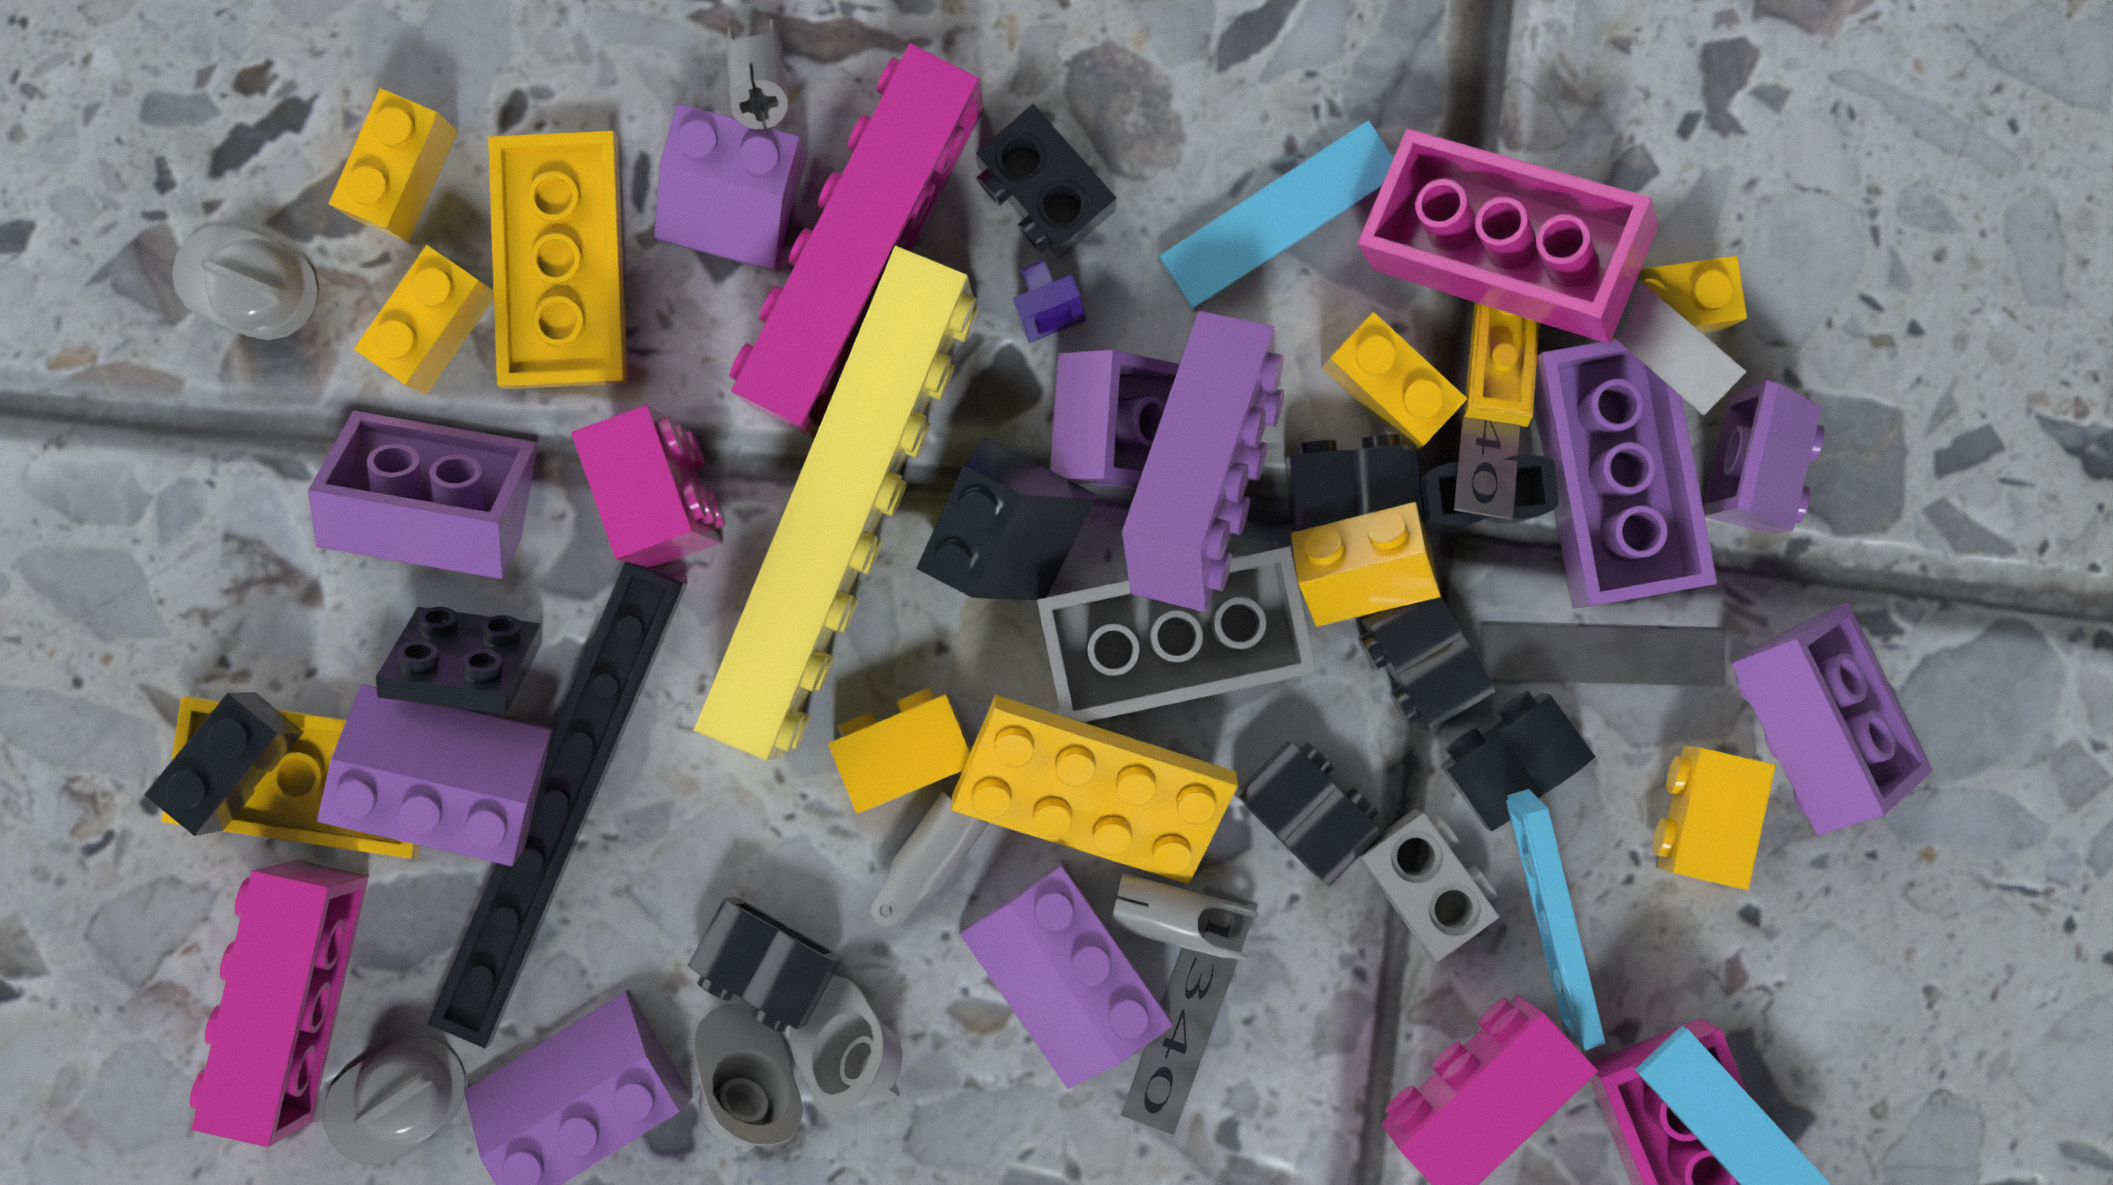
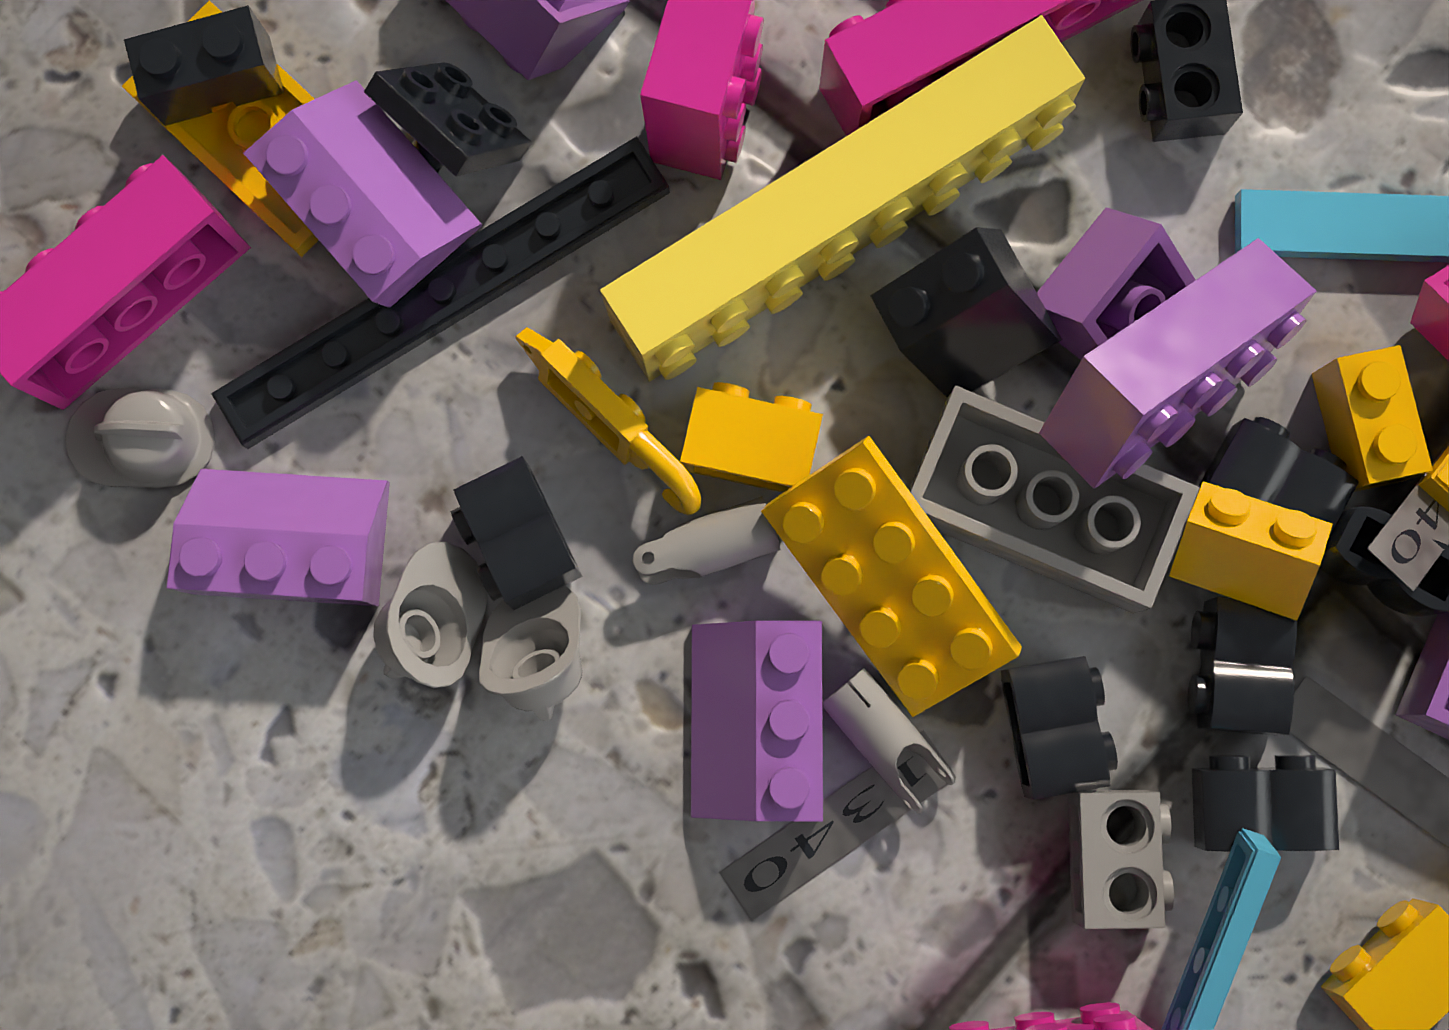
camera: 30 degrees right, 5 degrees down
(776, 813) = (609, 417): none -> yellow plate
(1047, 304) = (1123, 164): dark purple tile -> none

